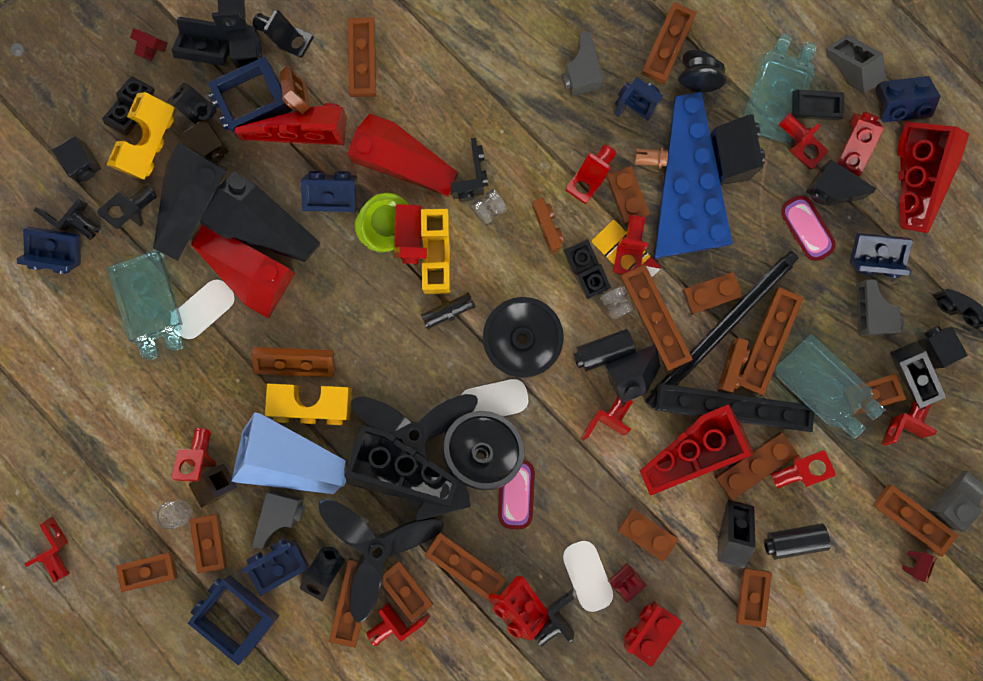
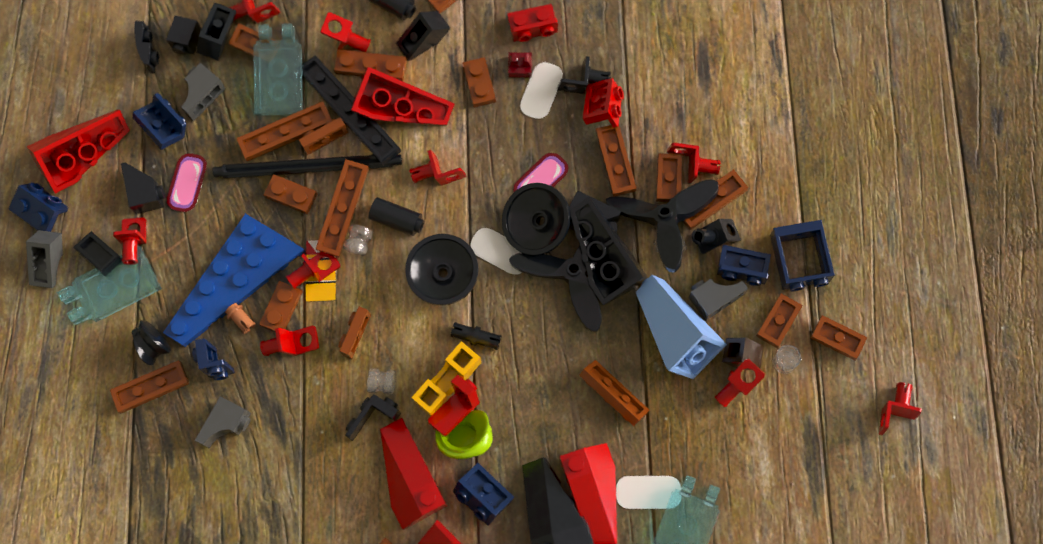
camera: 135 degrees left, 10 degrees down
(284, 402) = (614, 338): yellow arch -> none
(587, 269) = (356, 282): black slope -> none
(634, 373) = (392, 184): black slope -> none
(738, 150) = (180, 266): black slope -> none
(860, 142) = (96, 203): red bracket -> none

